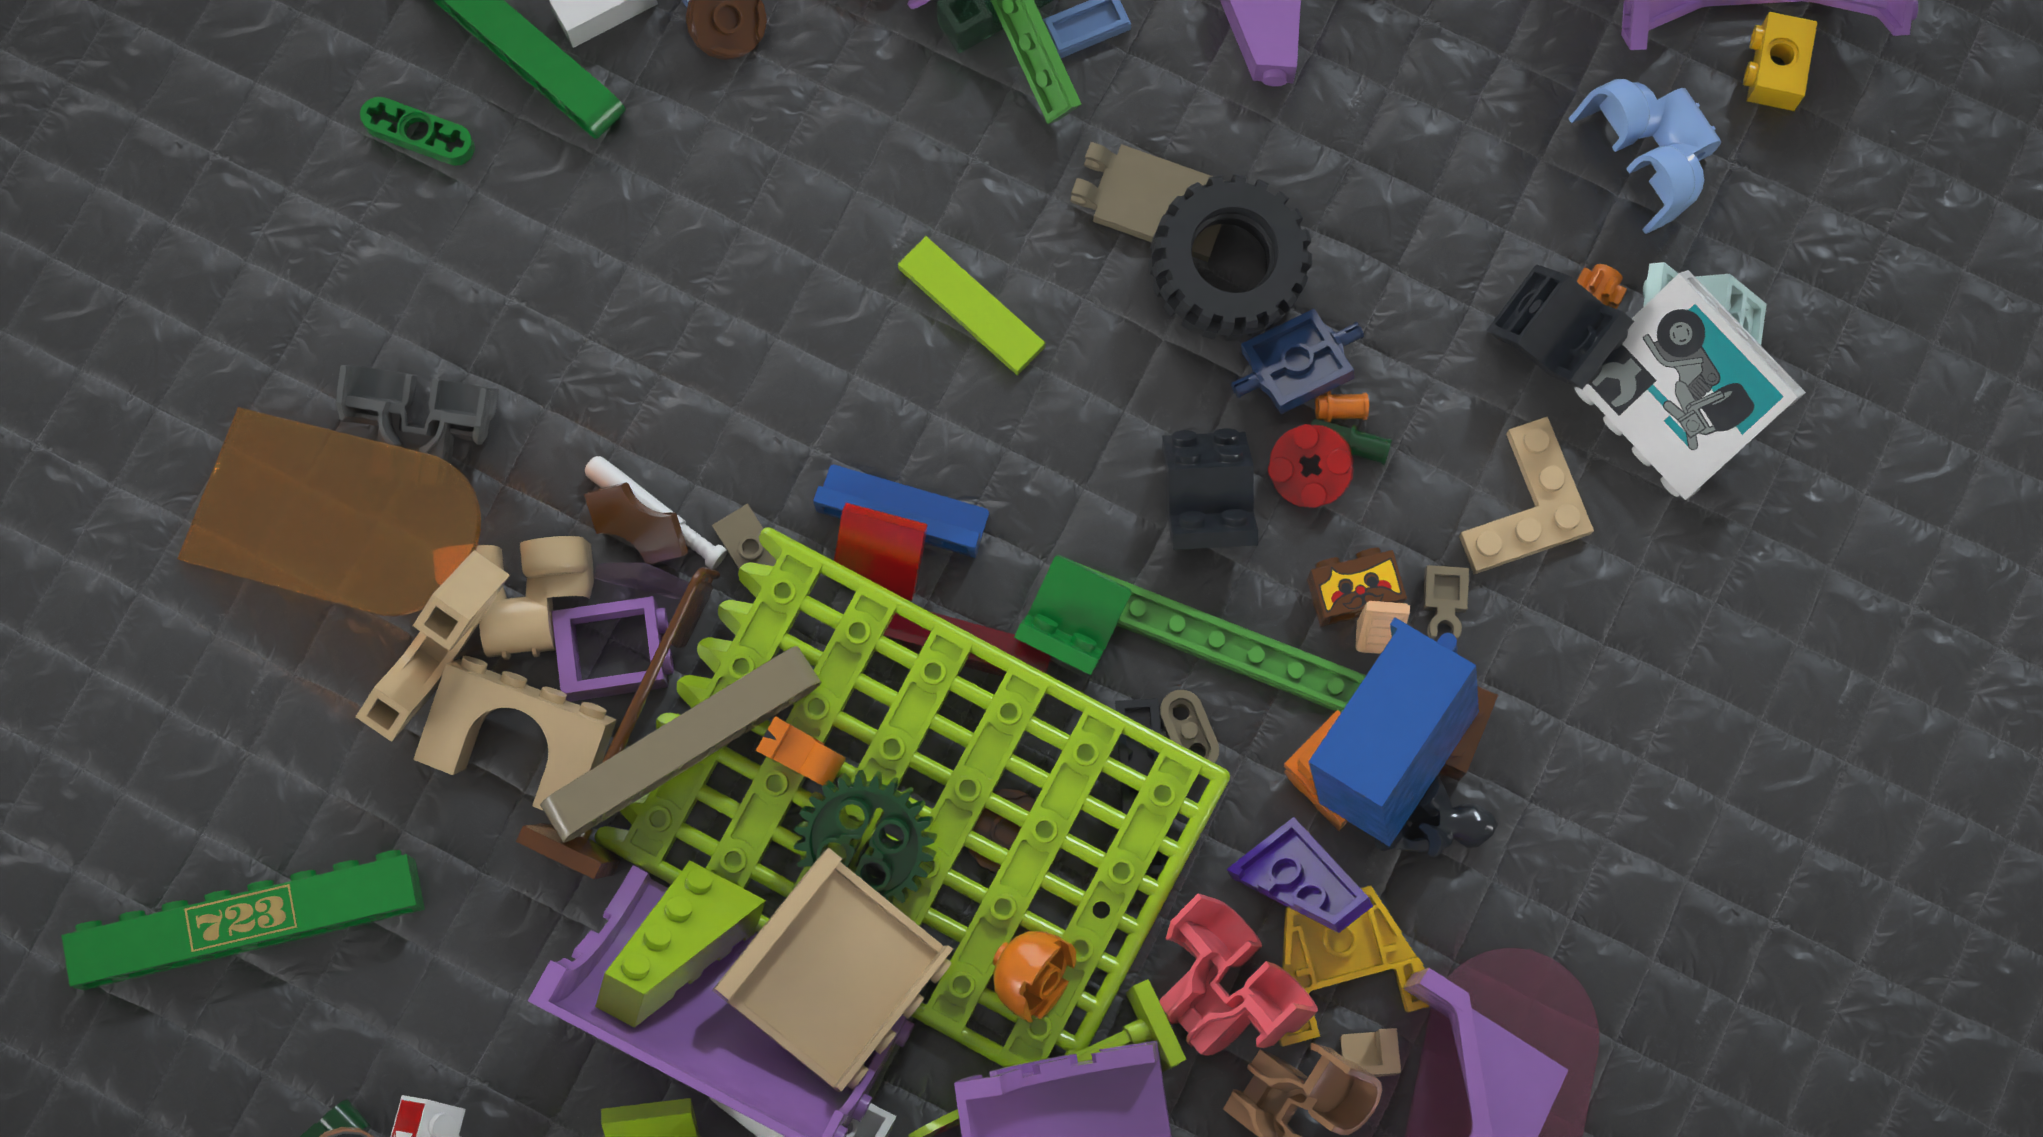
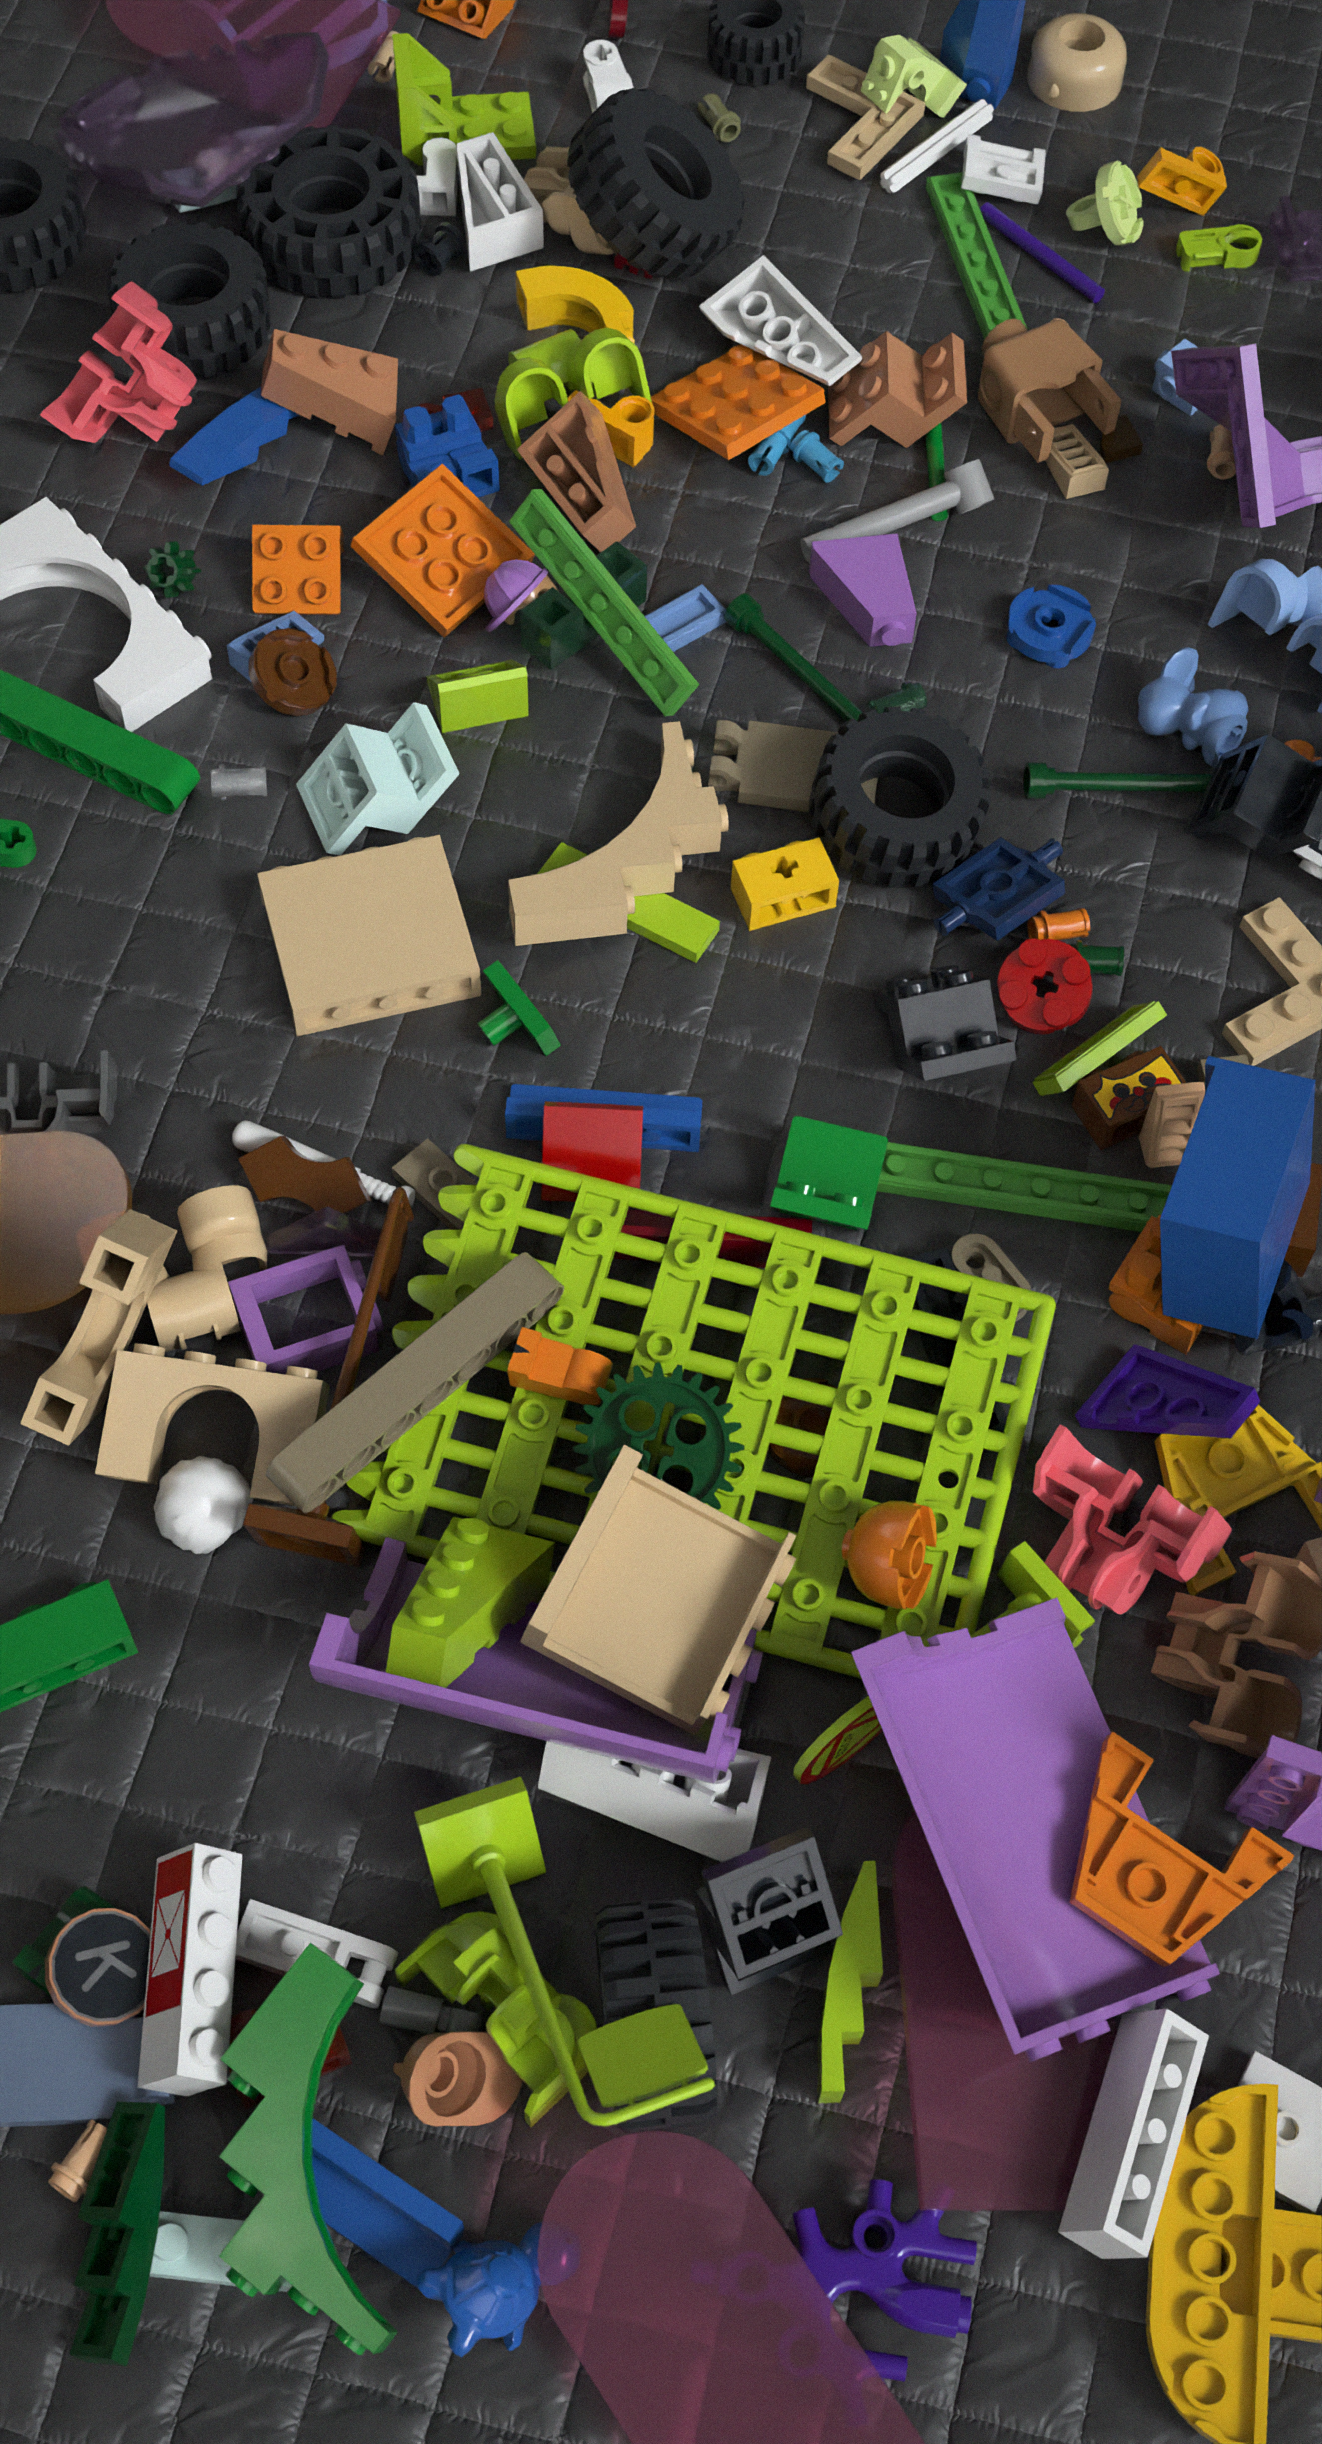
camera: 15 degrees left, 15 degrees down
(495, 799) = (201, 1503): none -> white hair
(658, 120) = (238, 782): none -> clear pin
(737, 296) = (369, 934): none -> tan panel
(776, 147) = (377, 779): none -> light aqua bracket
(848, 399) = (514, 1013): none -> green tile
(886, 67) = (479, 695): none -> lime slope
(940, 300) = (599, 890): none -> tan arch
(1094, 331) = (784, 883): none -> yellow brick
(1147, 33) = (746, 615): none -> dark green piece
(1260, 151) = (907, 697): none -> clear green pin
(1342, 535) = (1099, 1048): none -> lime tile
(1370, 256) = (1044, 780): none -> dark green piece
(1422, 115) = (1049, 644): none -> blue plate
(1534, 224) = (1205, 718): none -> medium blue animal

